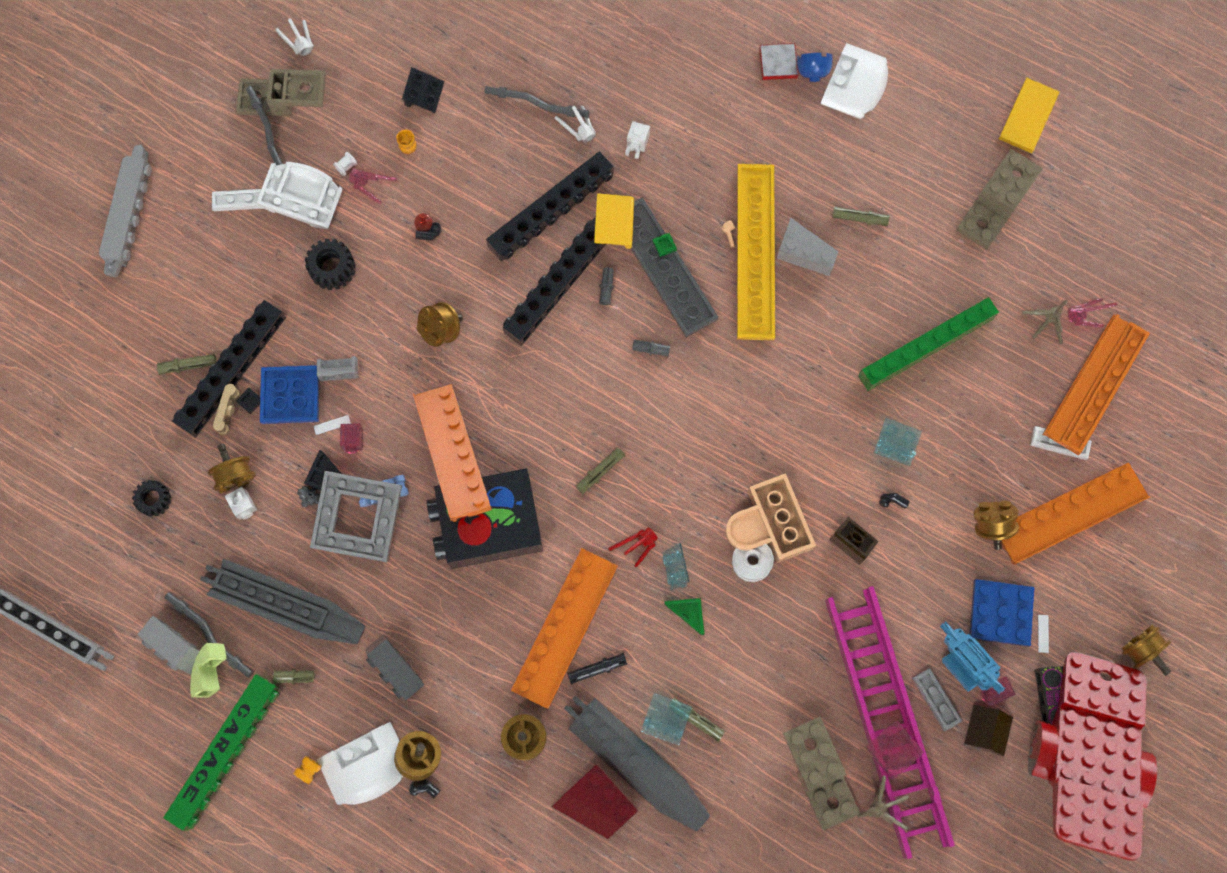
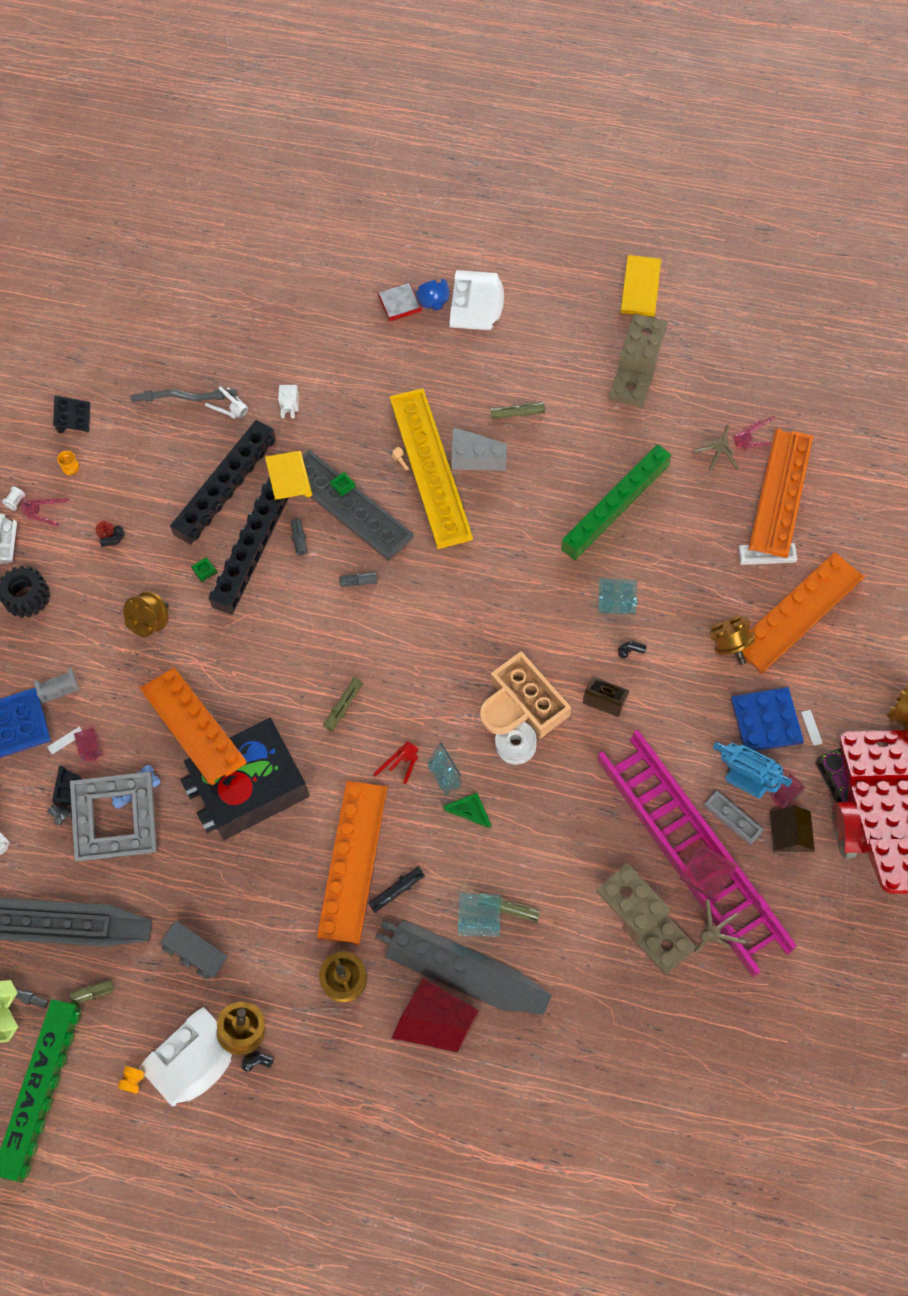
camera: 15 degrees left, 10 degrees down
(506, 292) = (204, 569): none -> green tile

